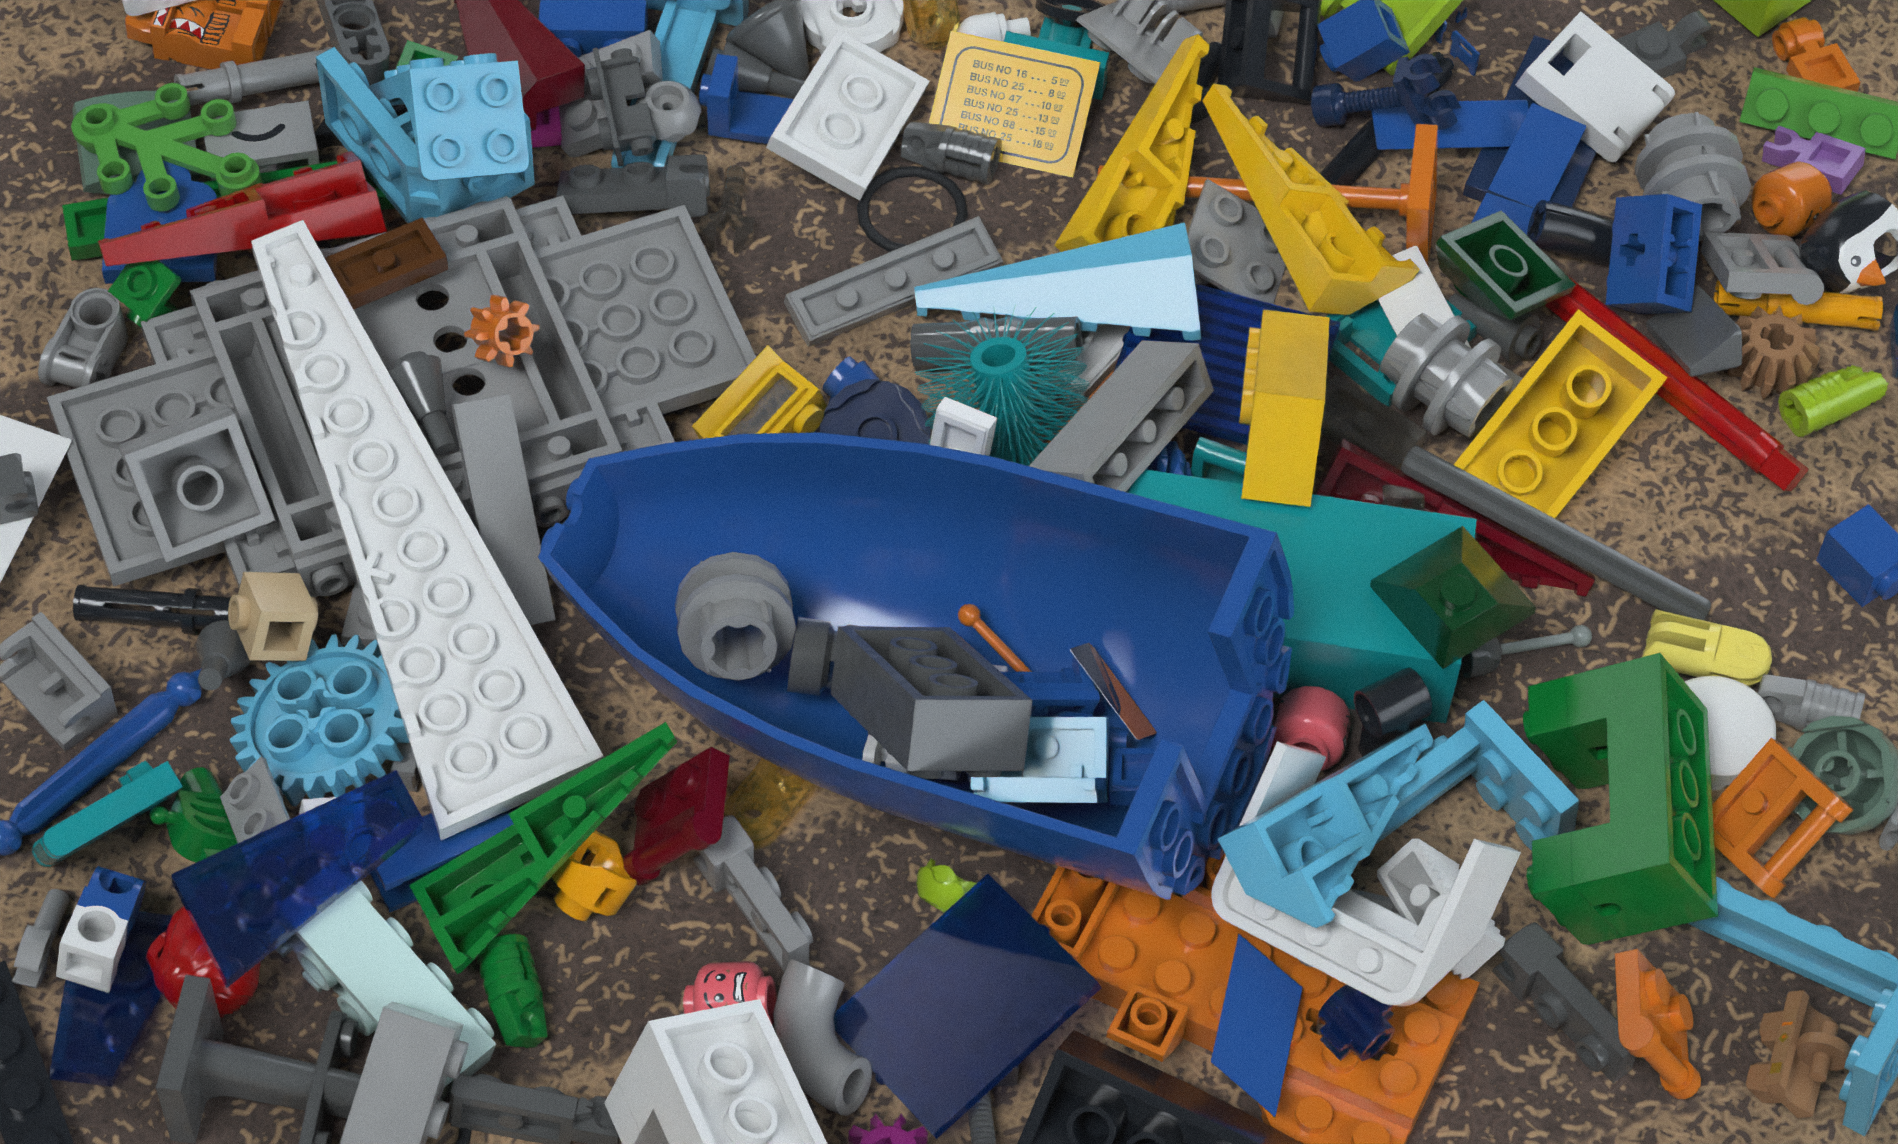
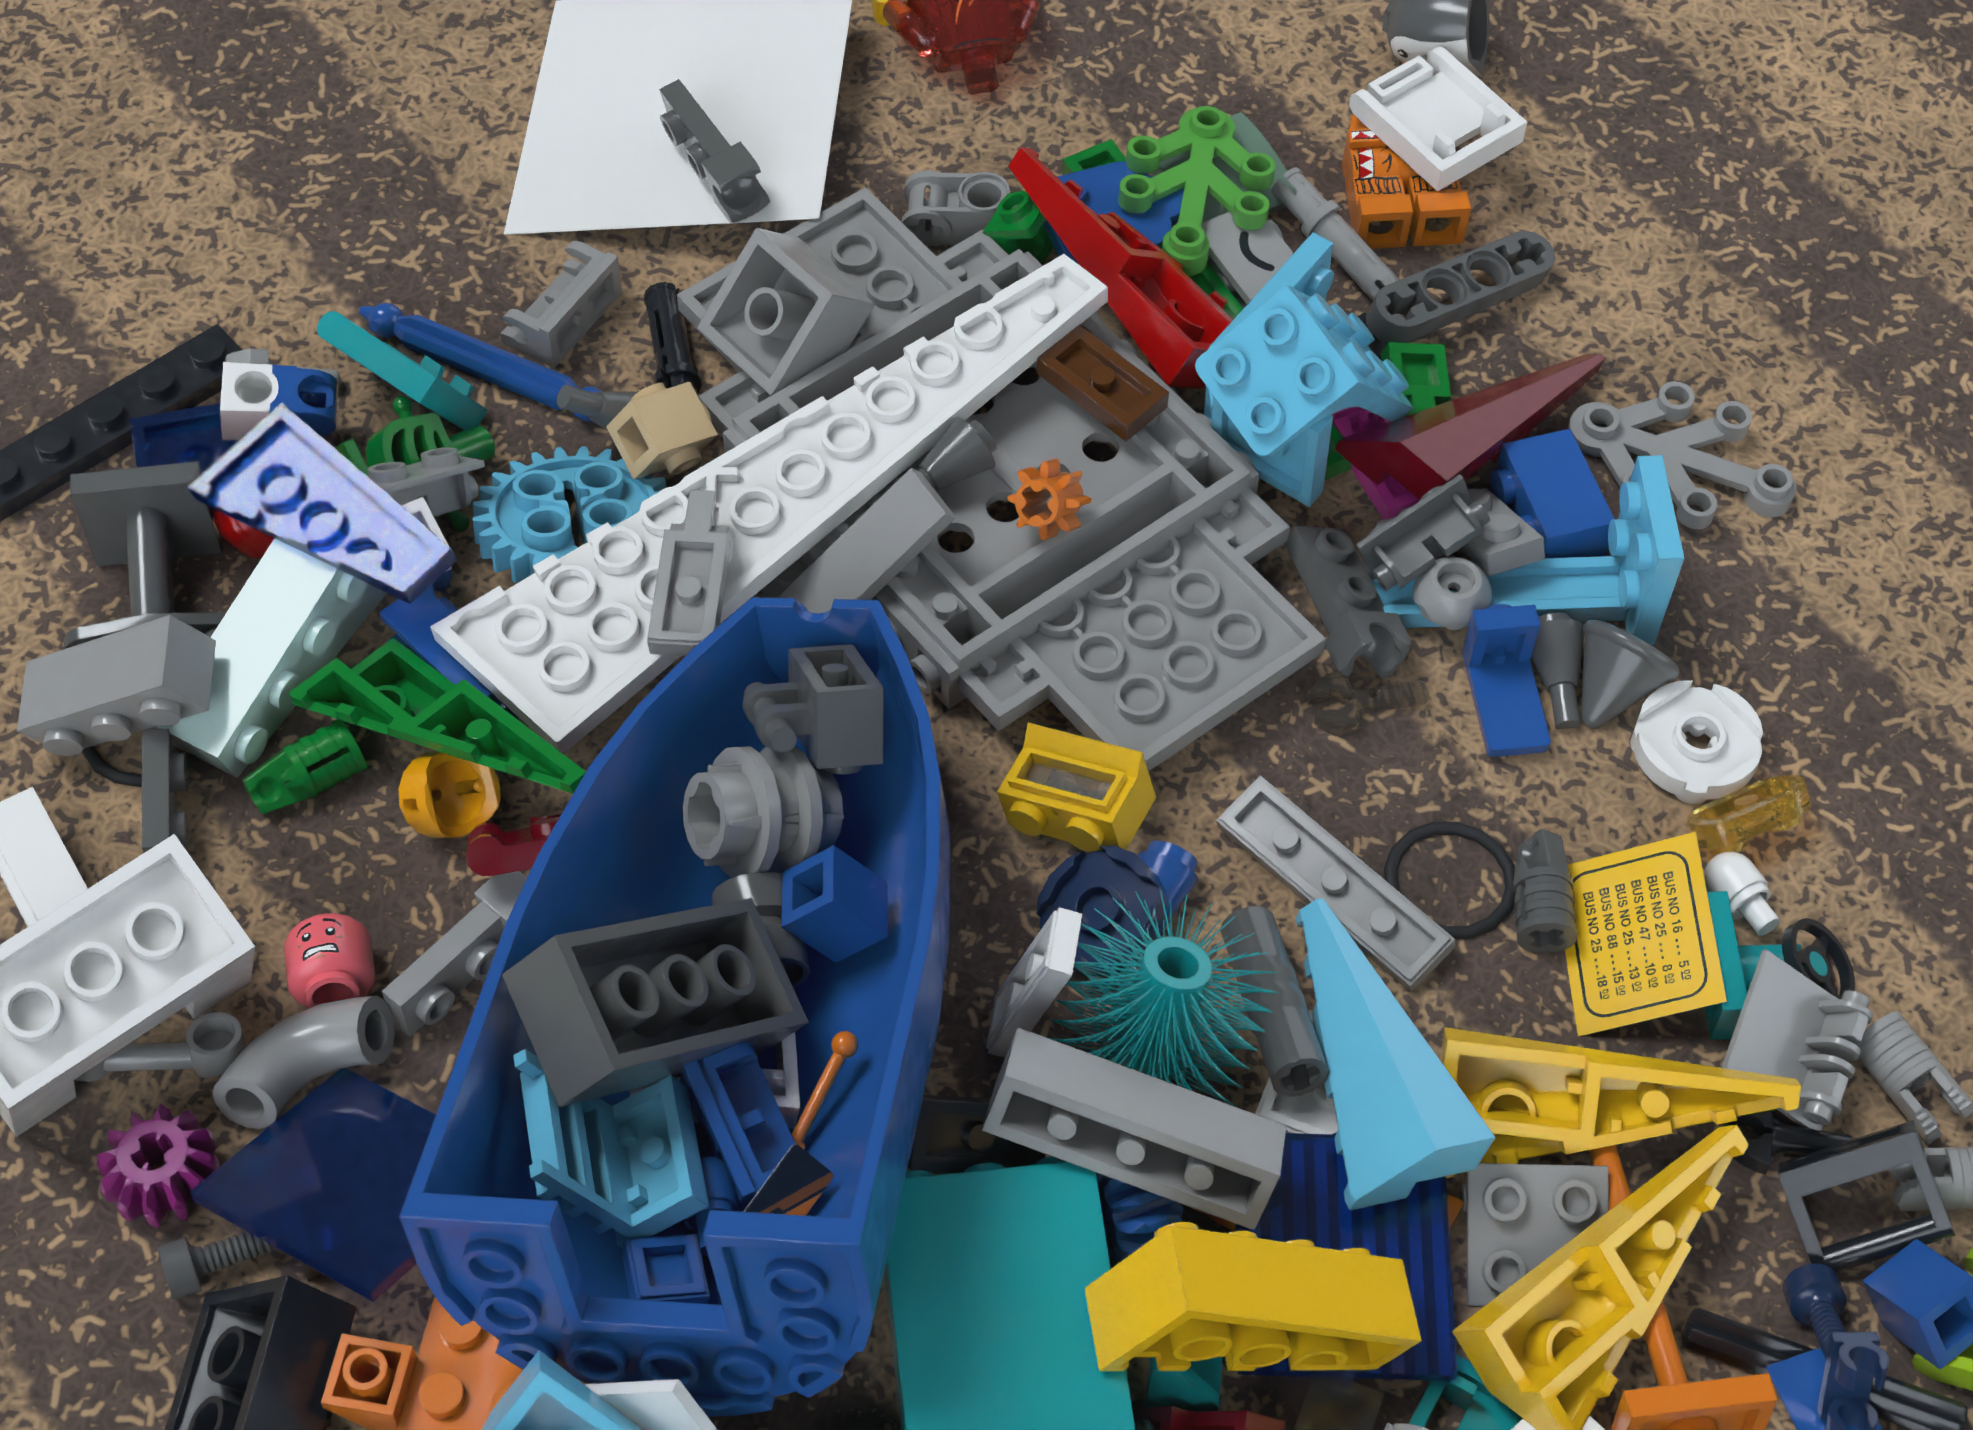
camera: 75 degrees right, 0 degrees up
(491, 602) = (690, 579): none -> light grey hinge
(665, 533) = (828, 704): none -> dark grey brick
(838, 589) = (834, 904): none -> blue brick
(848, 114) = (1539, 769): white plate -> none

